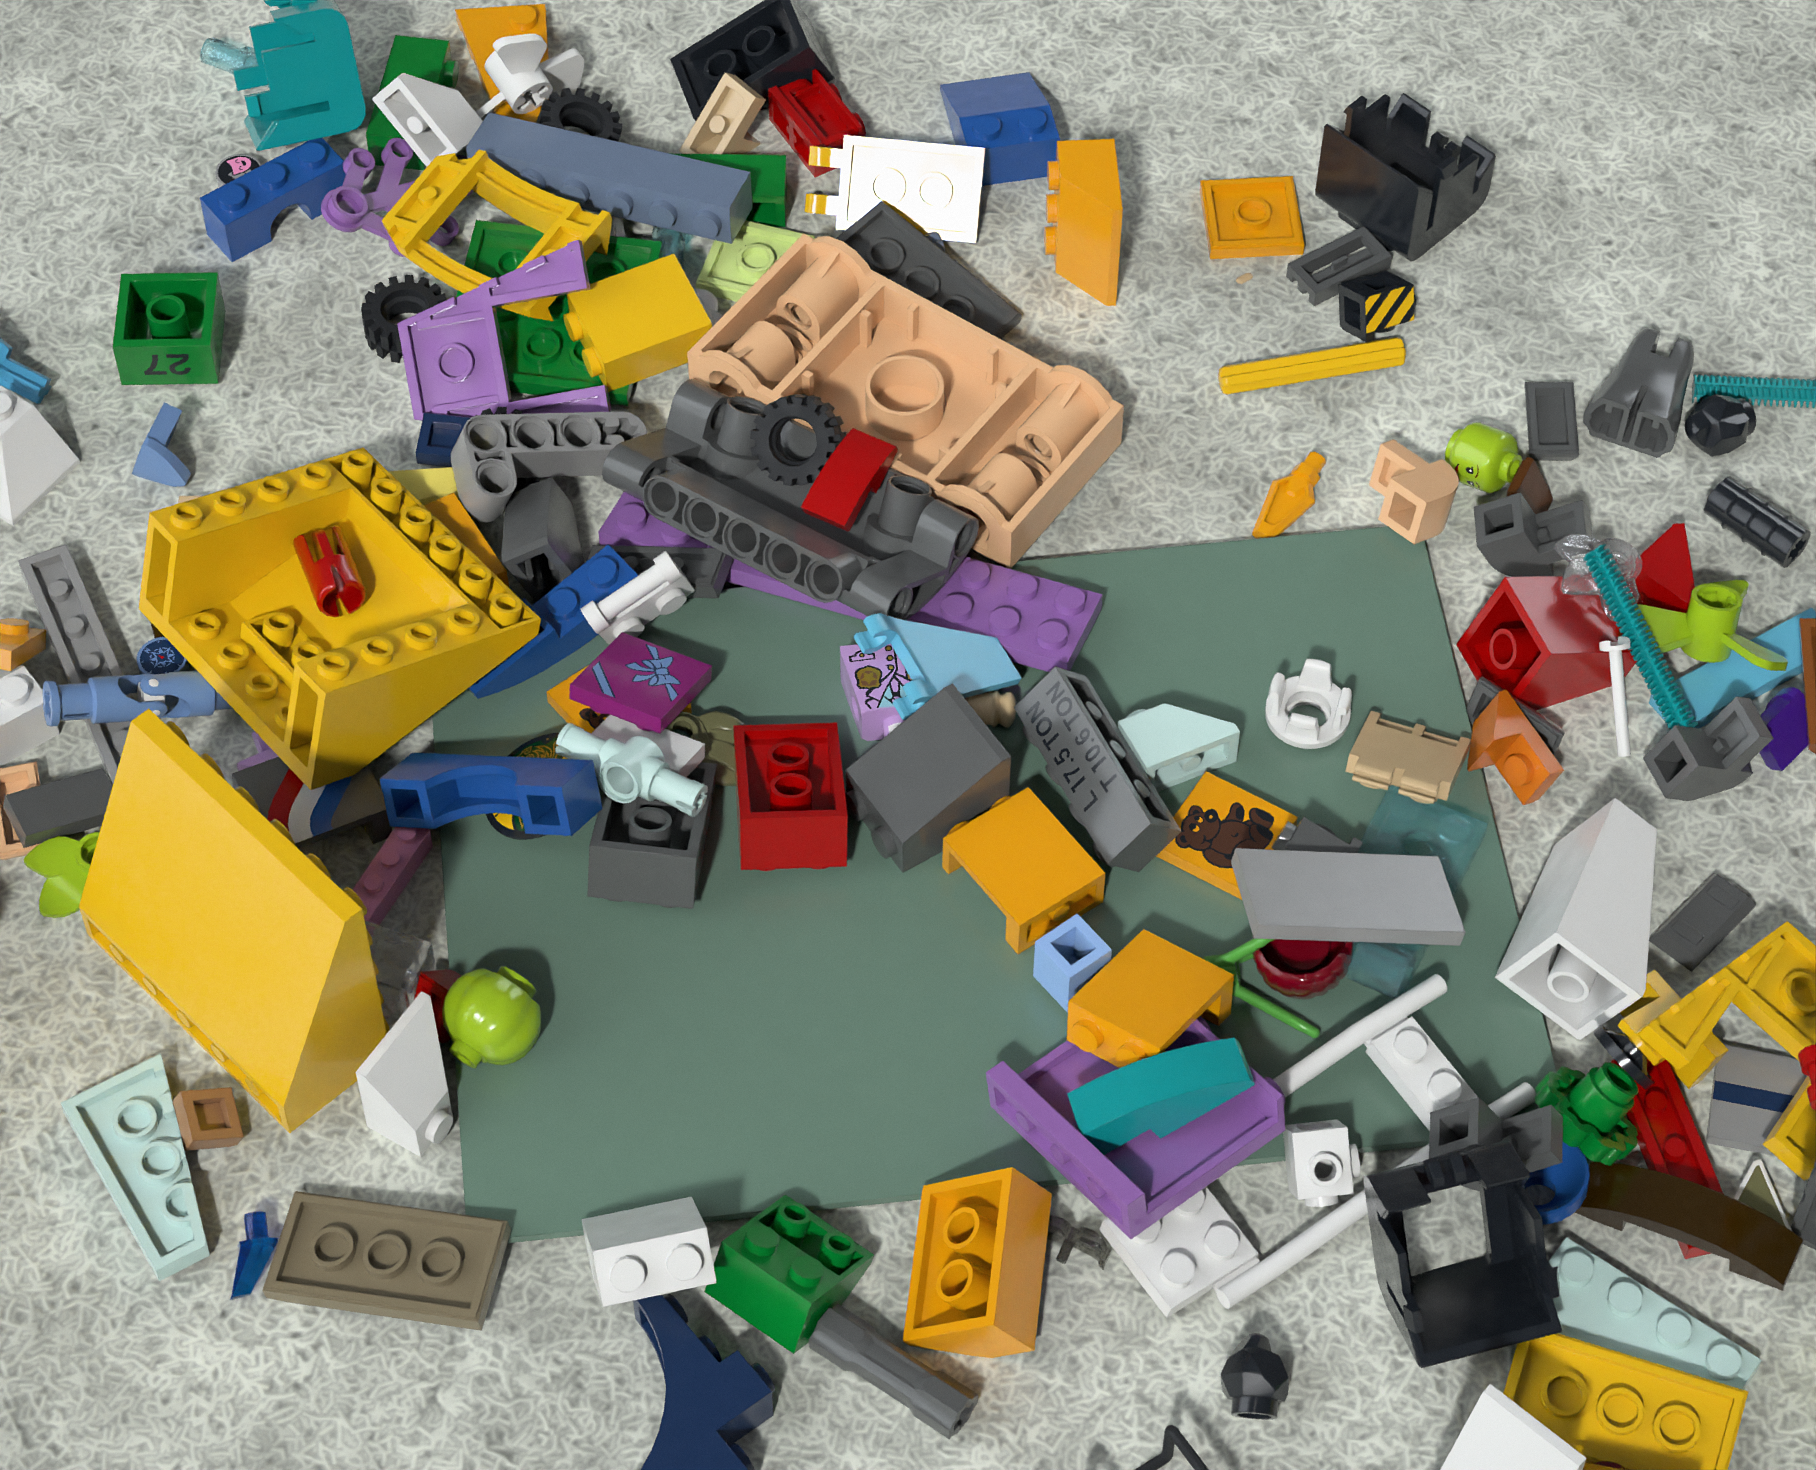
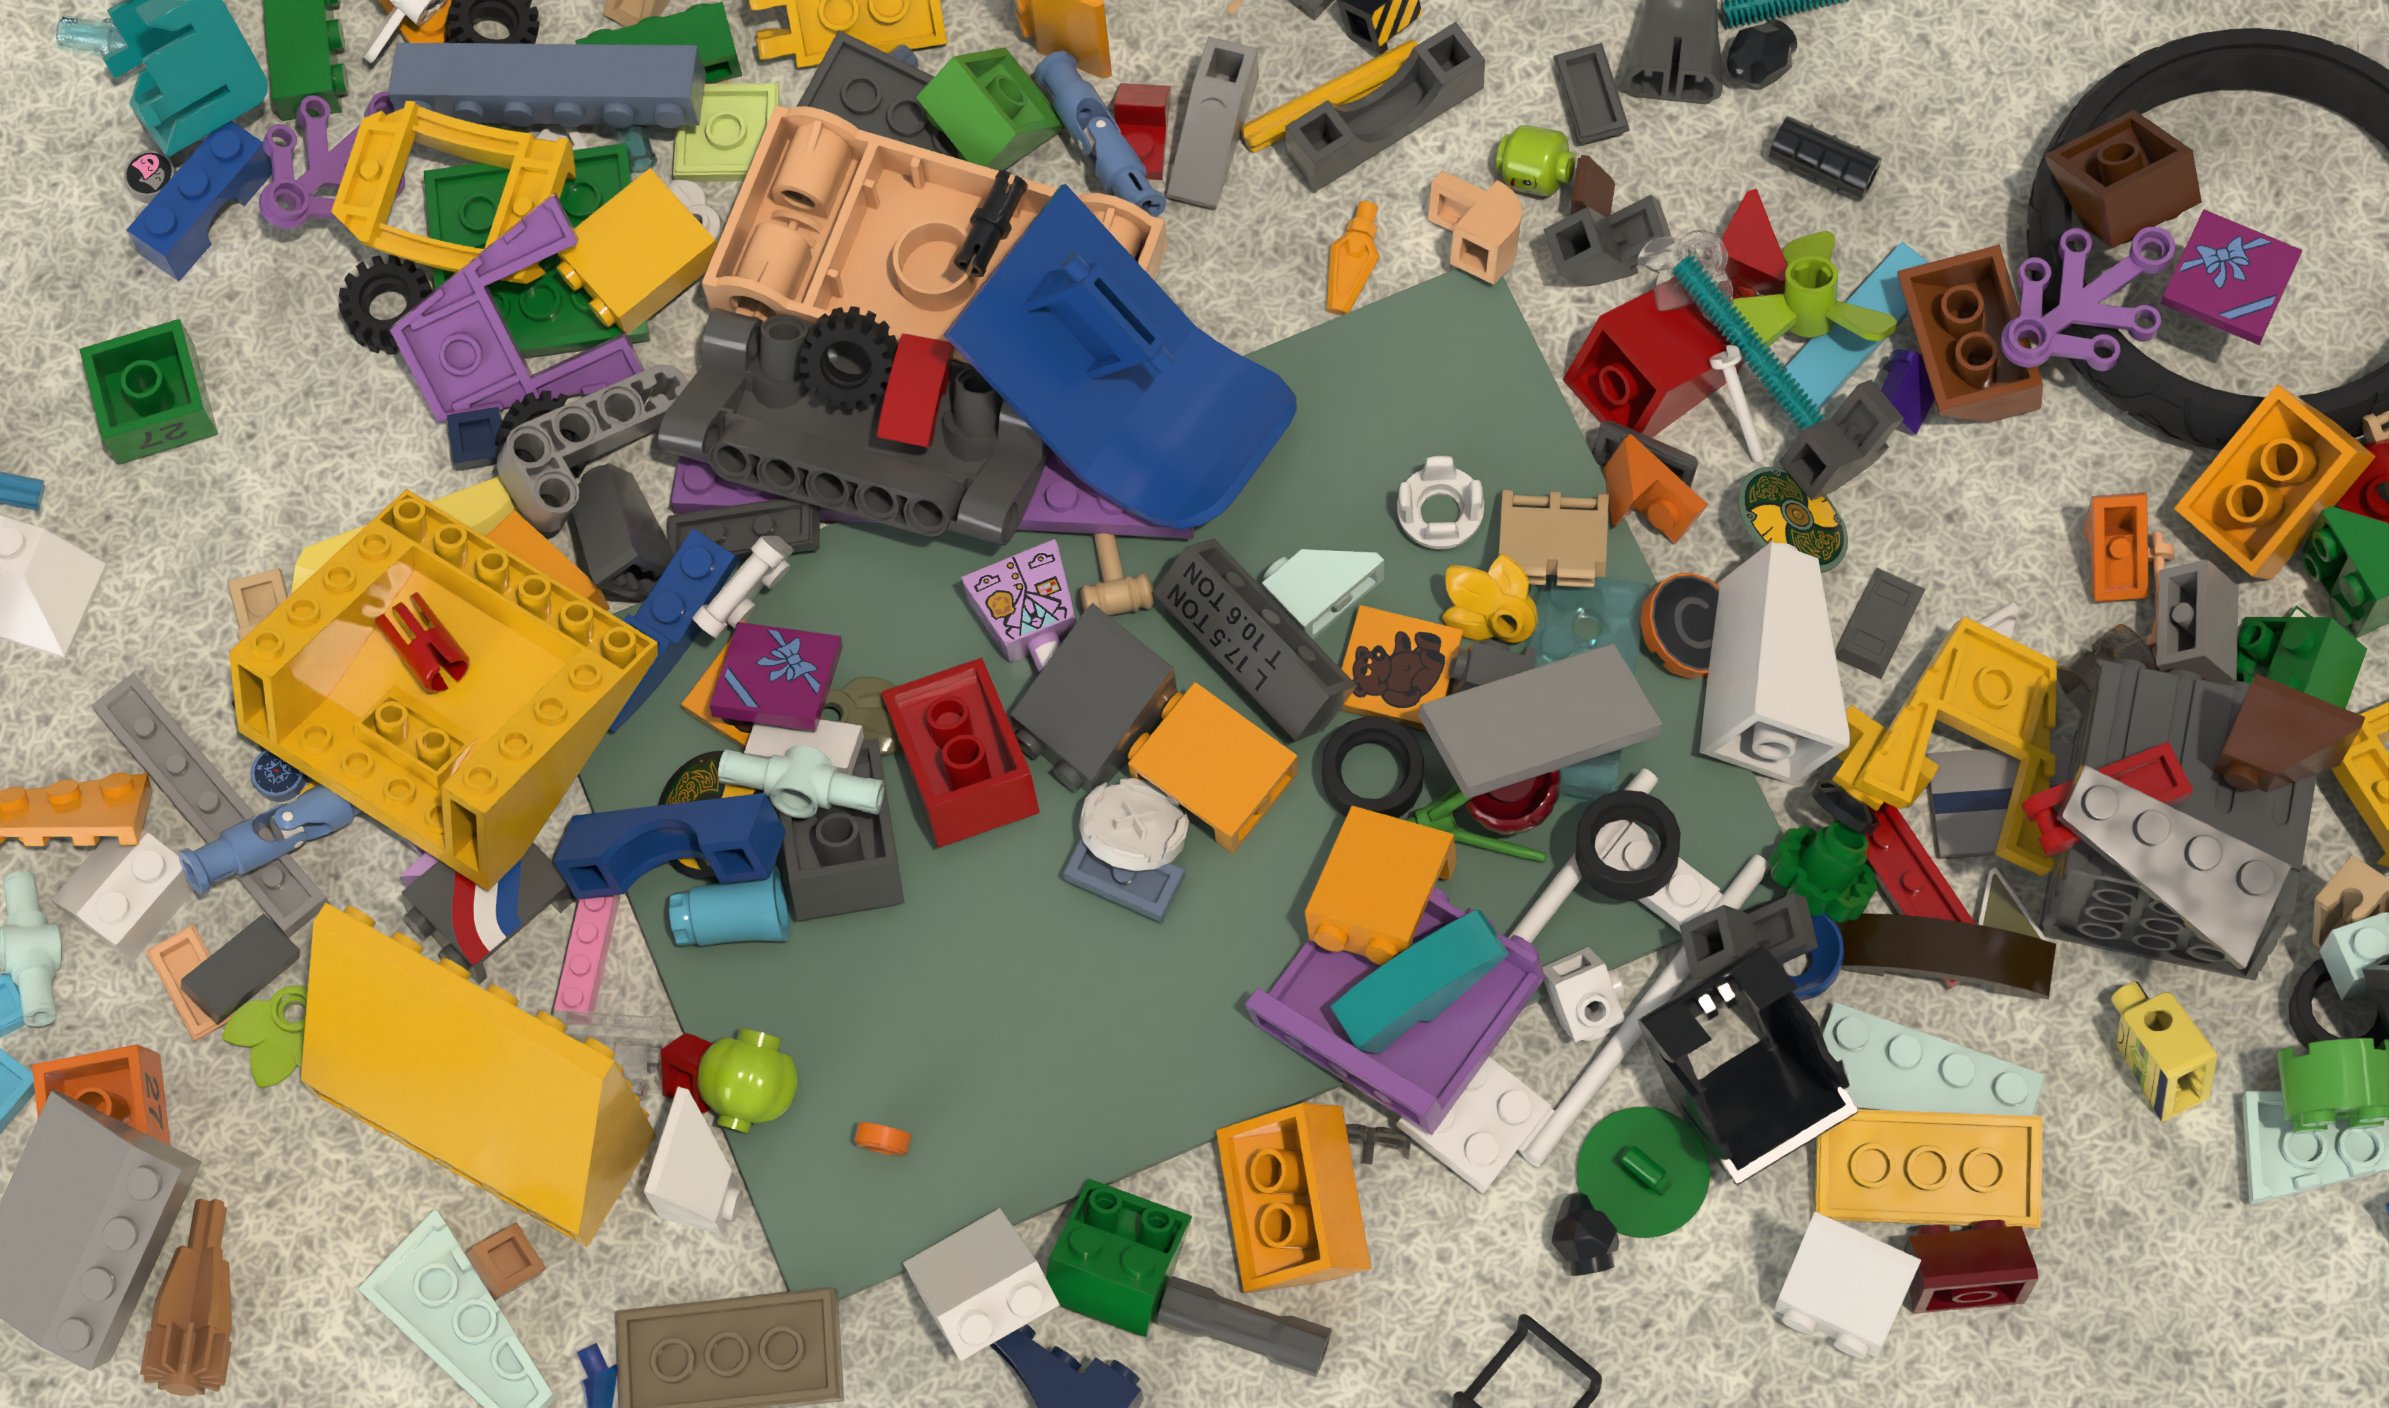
camera: 10 degrees left, 15 degrees up
(154, 459) = (183, 544): medium blue tile -> none
(428, 116) = (339, 69): white slope -> none
(530, 871) = (731, 912): none -> medium azure plant
(600, 1103) = (882, 1139): none -> orange tile
(908, 939) = (1141, 891): none -> sand blue plate
(931, 896) = (1133, 825): none -> white tile
(938, 658) = (1067, 566): medium azure flag -> none
(963, 365) = (990, 223): none -> black pin
(995, 289) = (989, 108): none -> bright green slope
(1037, 505) = (1119, 372): none -> blue door
(1069, 959) = (1291, 859): light blue brick -> none
(1084, 329) = (1112, 156): none -> medium blue piece
(1127, 351) = (1143, 120): none -> red slope
(1182, 878) = (1373, 730): none -> black tyre
(1201, 344) = (1213, 121): none -> light grey slope
(1327, 787) = (1486, 597): none -> yellow plate
(1334, 1342) = (1644, 1171): none -> green shield
(1404, 994) = (1627, 806): none -> black tyre
(1410, 369) = (1430, 82): none -> dark grey arch
(1509, 865) = (1680, 623): none -> black tile
(1637, 789) = (1781, 512): none -> shield

